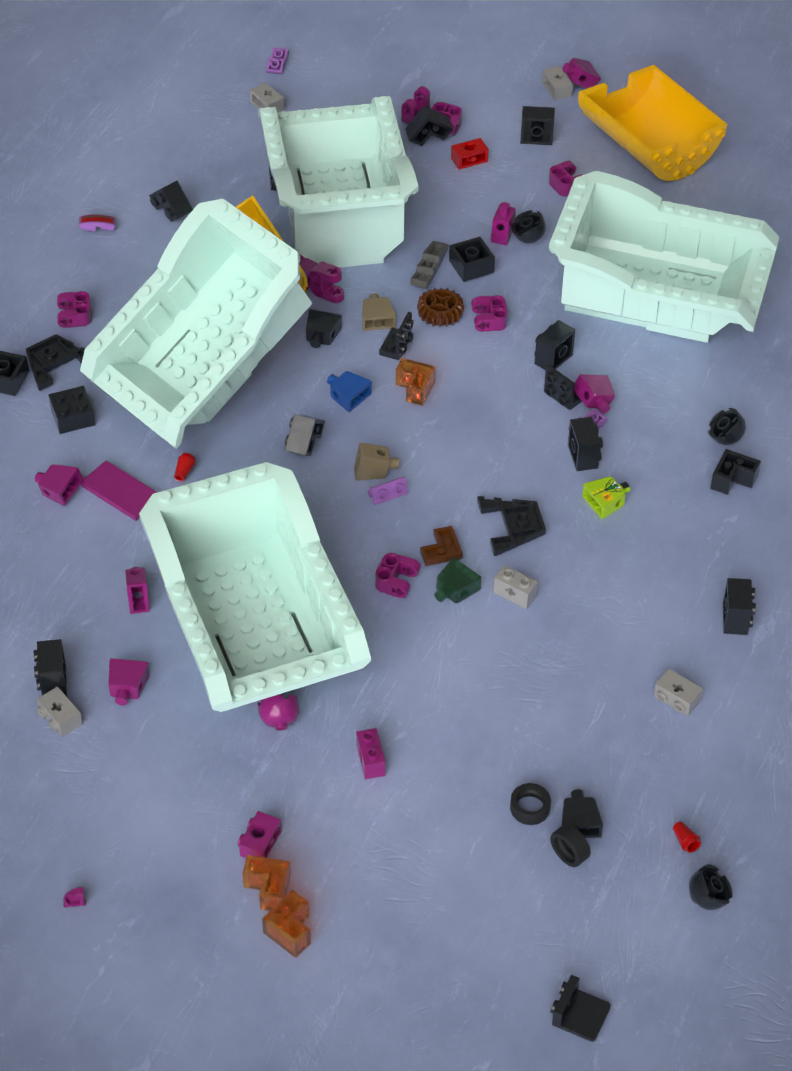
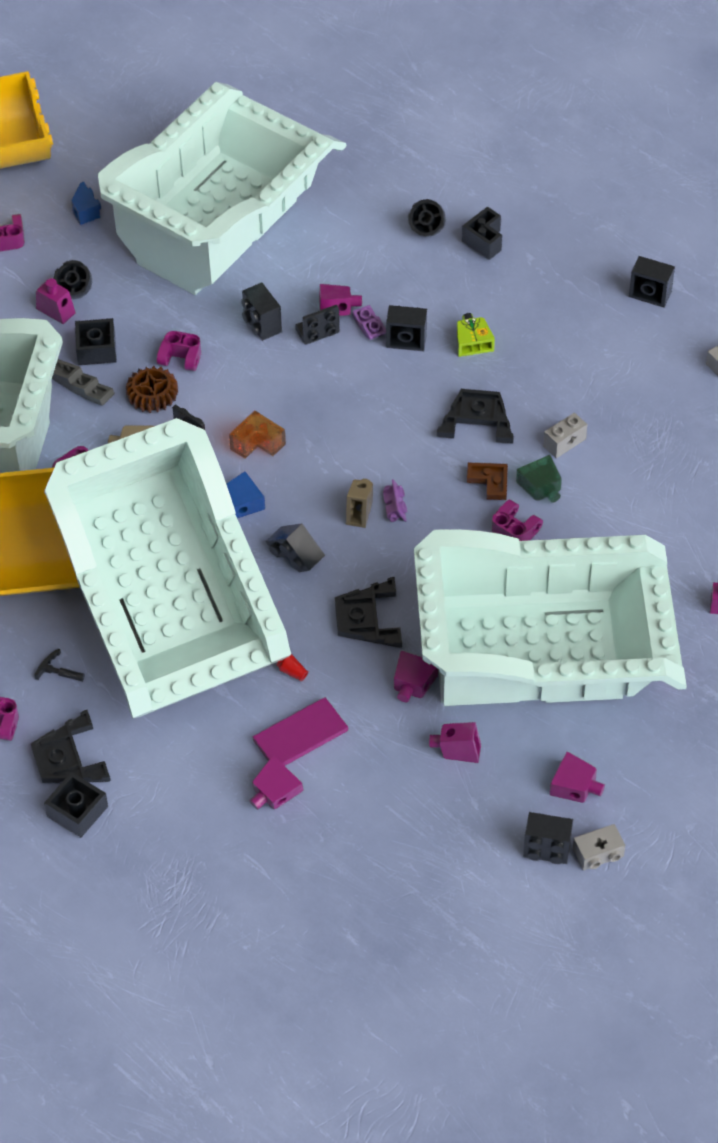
camera: 70 degrees left, 5 degrees up
(71, 409) = (163, 751): black brick -> none

